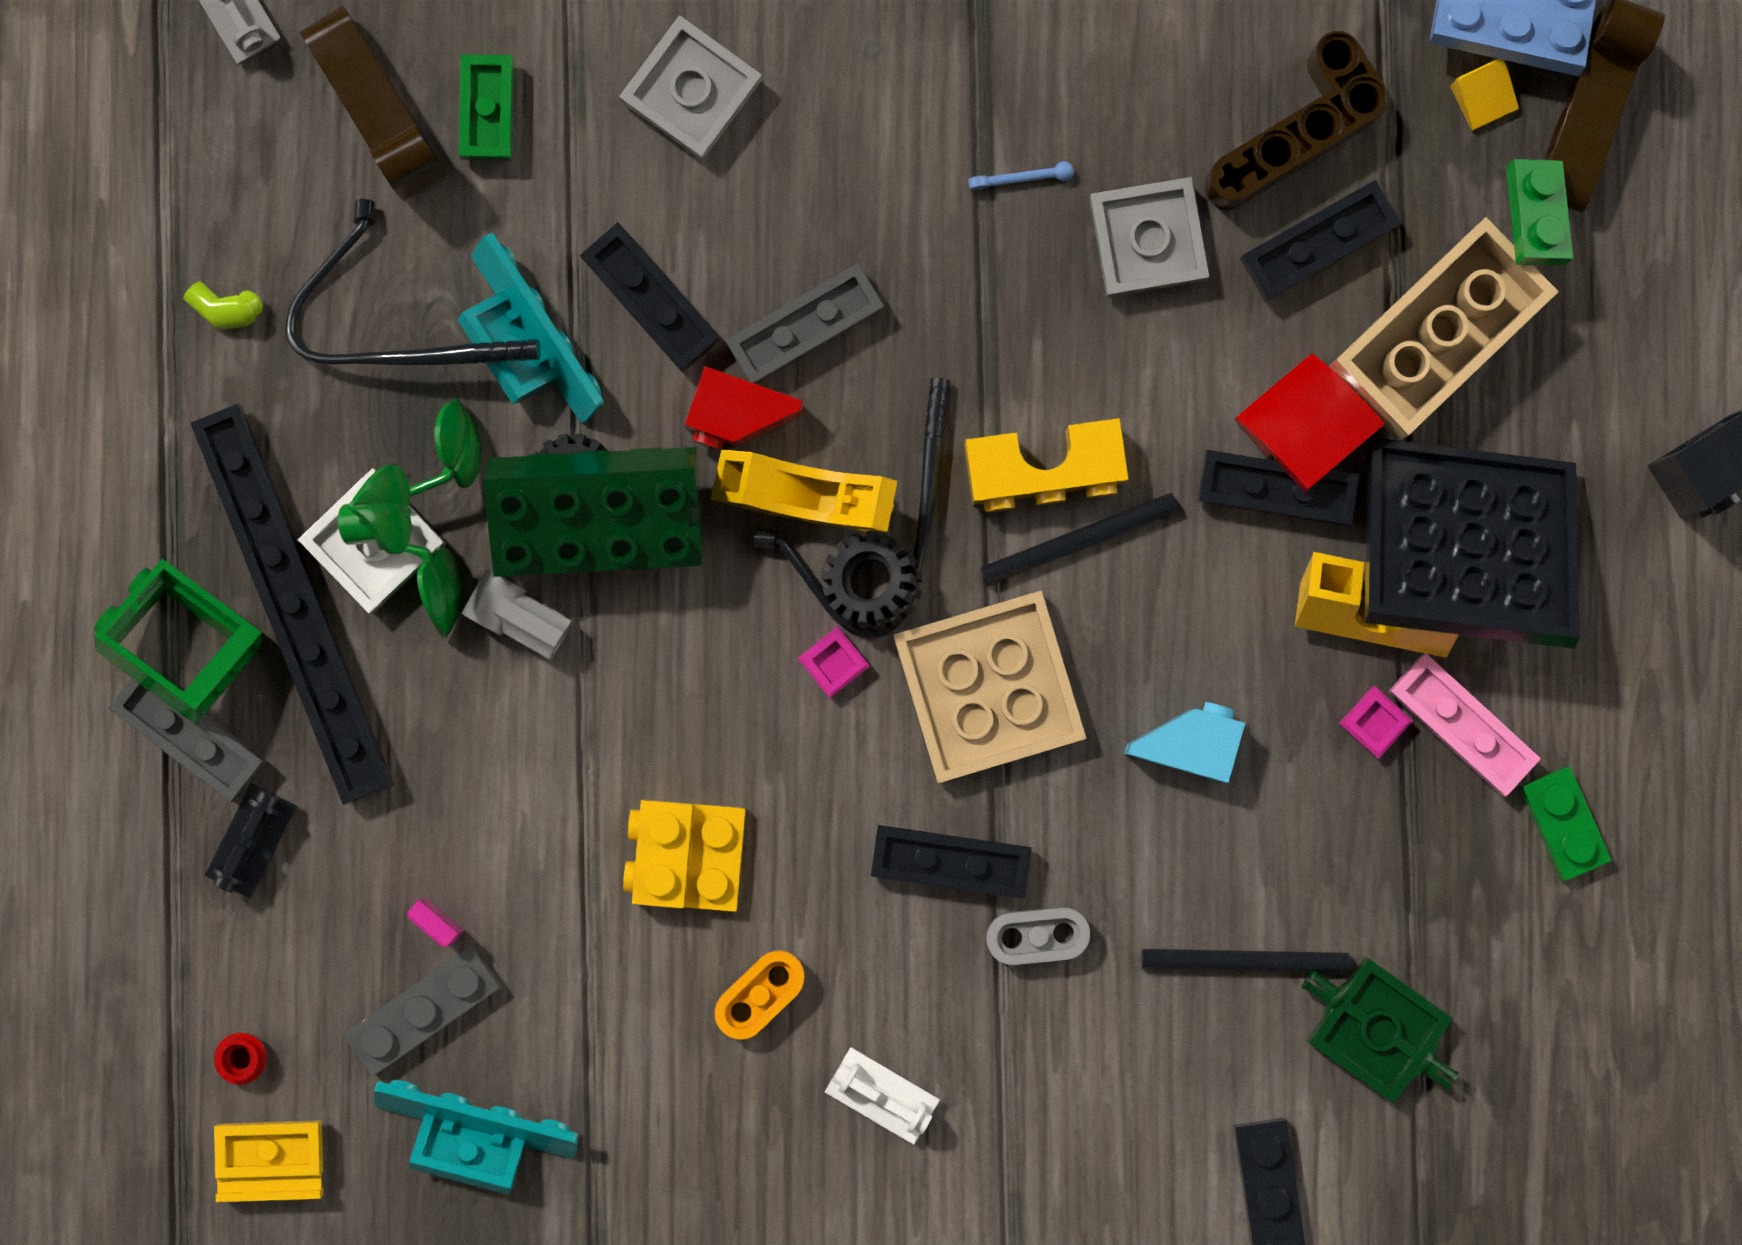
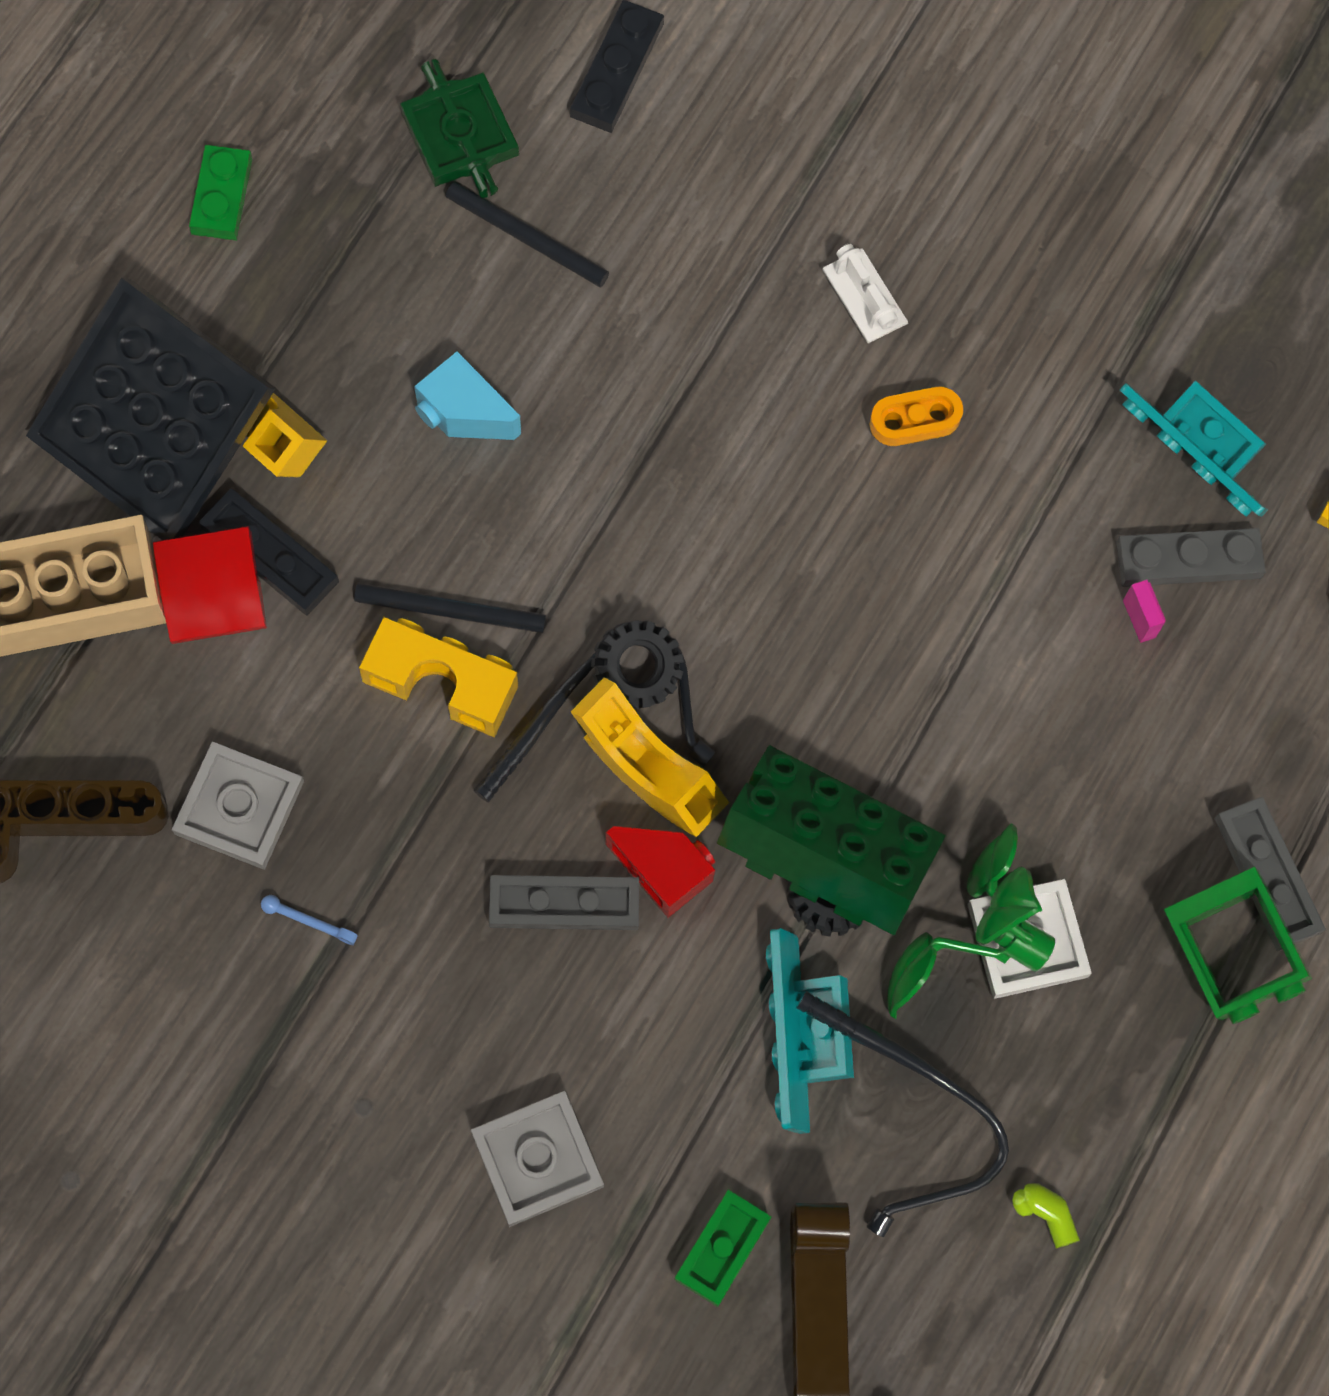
camera: 155 degrees left, 15 degrees down
(250, 841) = (1262, 761): black hinge -> none
(292, 604) = (1124, 932): black plate -> none
(507, 610) = (943, 807): light grey piece -> none
(650, 297) = (679, 1002): black plate -> none
(685, 855) = (913, 551): yellow plate -> none
(833, 662) = (706, 629): dark pink tile -> none
(951, 861) = (707, 427): black plate -> none
(989, 686) = (594, 536): tan plate -> none
(1037, 936) = (676, 335): light grey plate -> none
(1320, 240) = (103, 720): black plate -> none
(1375, 722) = (312, 343): dark pink tile -> none
(1464, 725) = (247, 299): bright pink plate -> none

